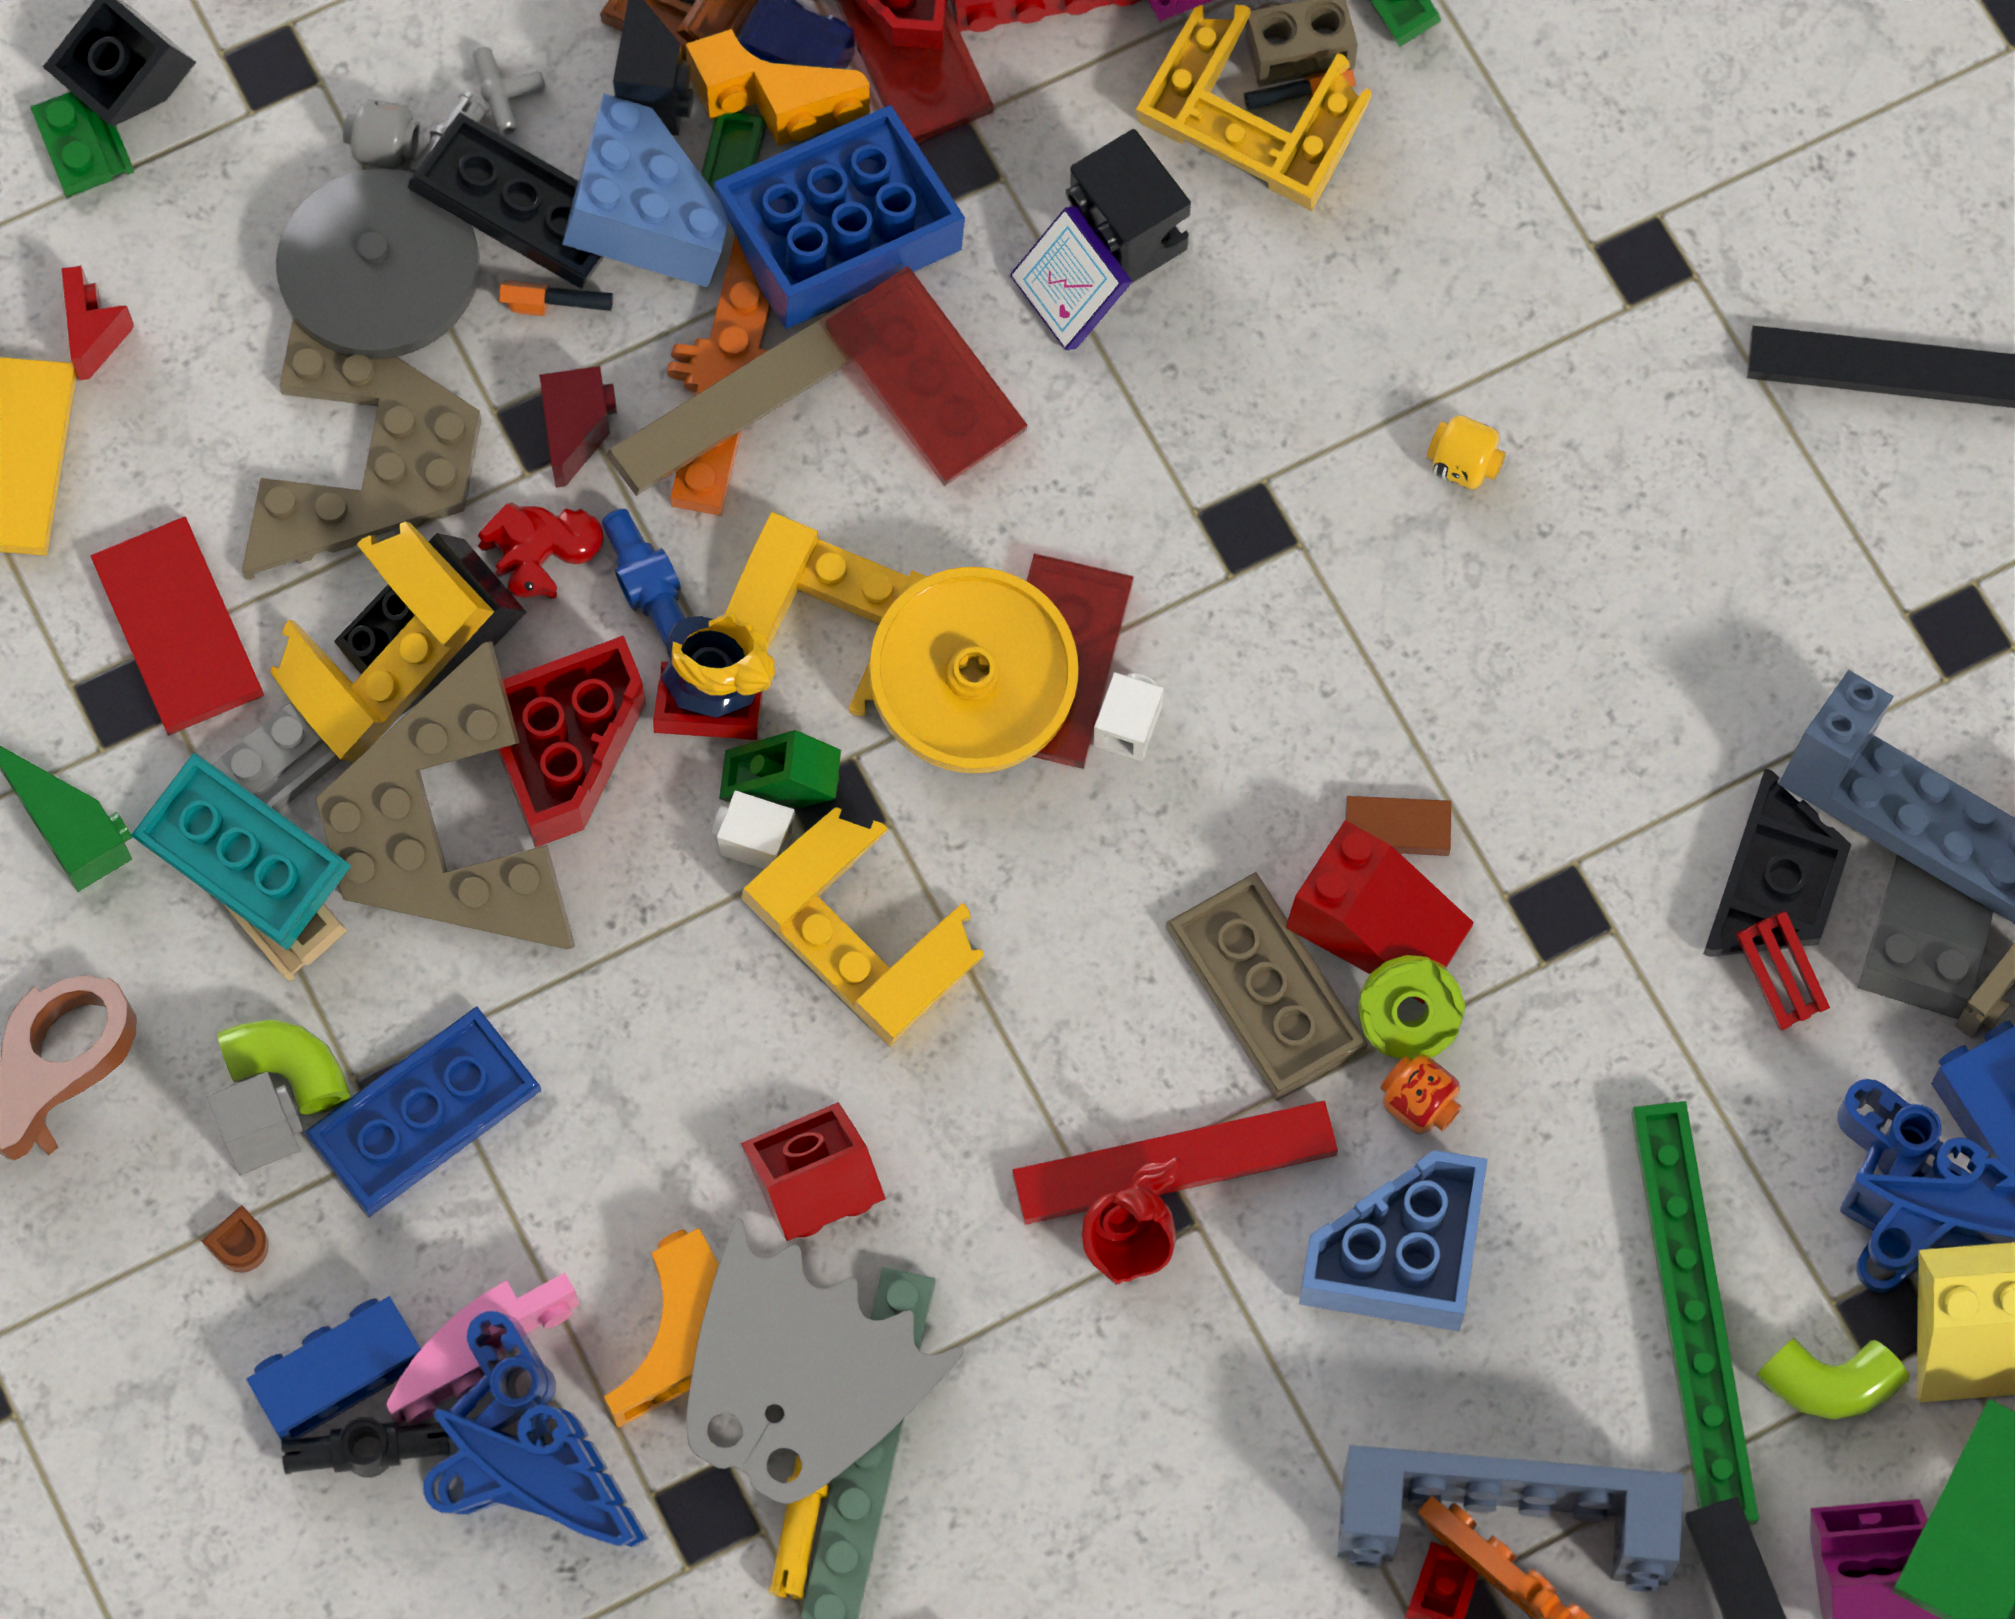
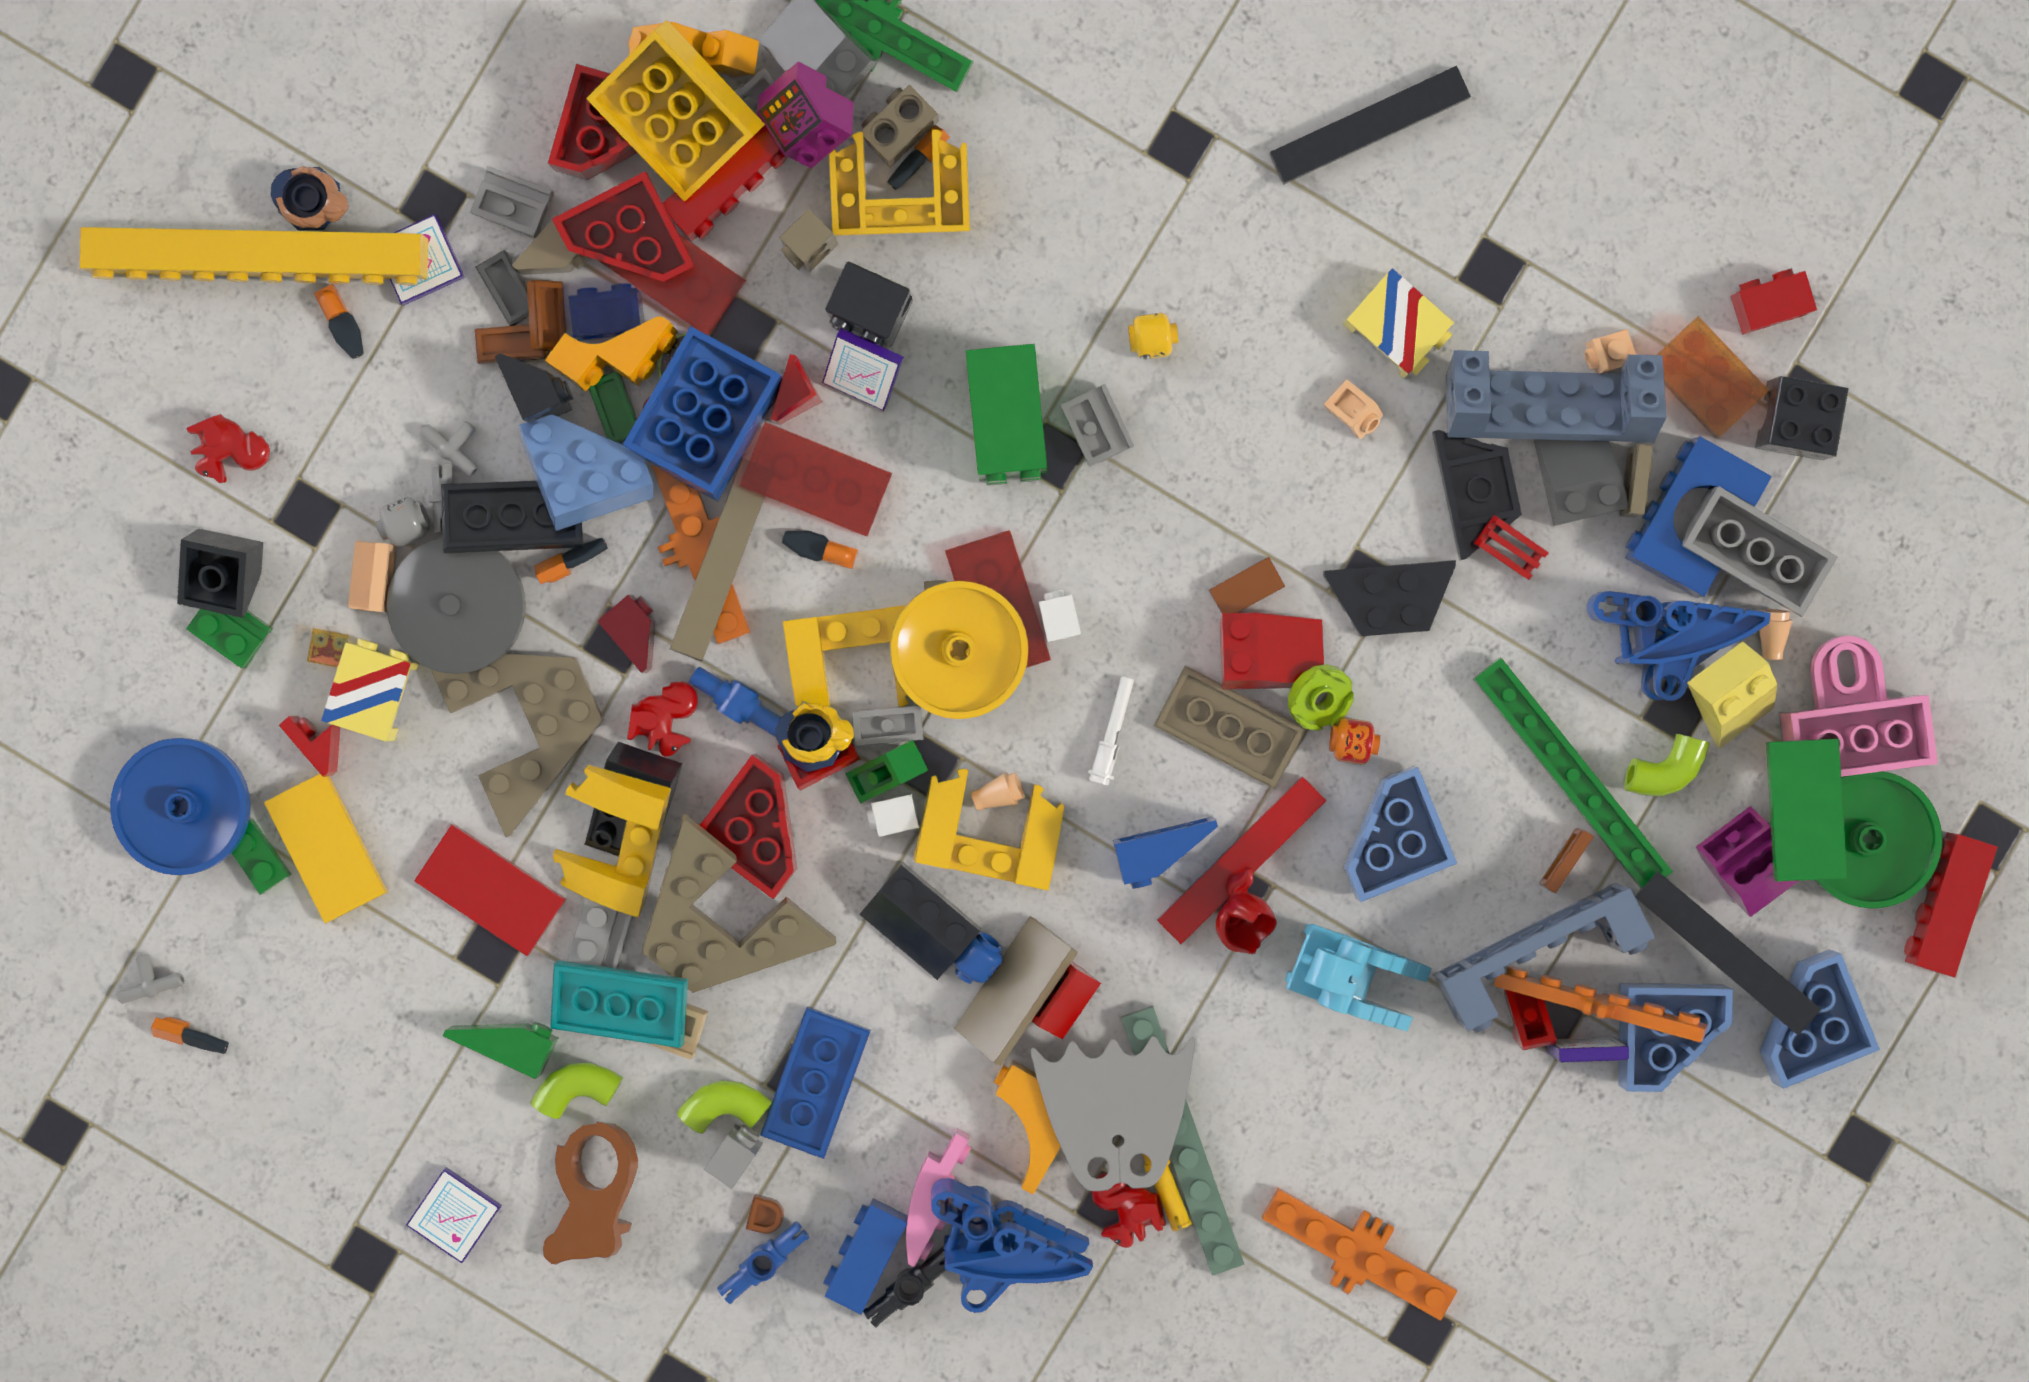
camera: 30 degrees left, 20 degrees up
(114, 916) = (575, 1081): none -> lime cylinder
(166, 1297) = (750, 1274): none -> blue pin
(184, 229) = (326, 647): none -> clear yellow tile
(198, 297) = (368, 690): none -> panel
(297, 174) = (371, 575): none -> light nougat panel
(699, 983) = (920, 921): none -> black slope
(738, 1528) = (1135, 1210): none -> red animal
(743, 1073) = (979, 959): none -> blue head
(766, 1139) = (1015, 991): none -> dark tan tile
(821, 716) = (887, 725): none -> light grey plate
(876, 463) = (818, 548): none -> black piece
(910, 885) = (999, 792): none -> light nougat cone
(966, 264) = (795, 393): none -> red slope
(1072, 1067) = (1153, 852): none -> blue slope
(1088, 915) = (1108, 748): none -> white pin
(1100, 95) = (807, 242): none -> dark tan brick
(1219, 427) = (1006, 413): none -> green brick
(1225, 1373) = (1340, 971): none -> medium azure piece
(1326, 517) = (1097, 425): none -> light grey plate
(1584, 946) = (1392, 596): none -> black wing
(1618, 1417) = (1566, 860): none -> dark orange tile
(1676, 688) = (1354, 409): none -> light nougat bracket
(1799, 614) = (1400, 323): none -> panel

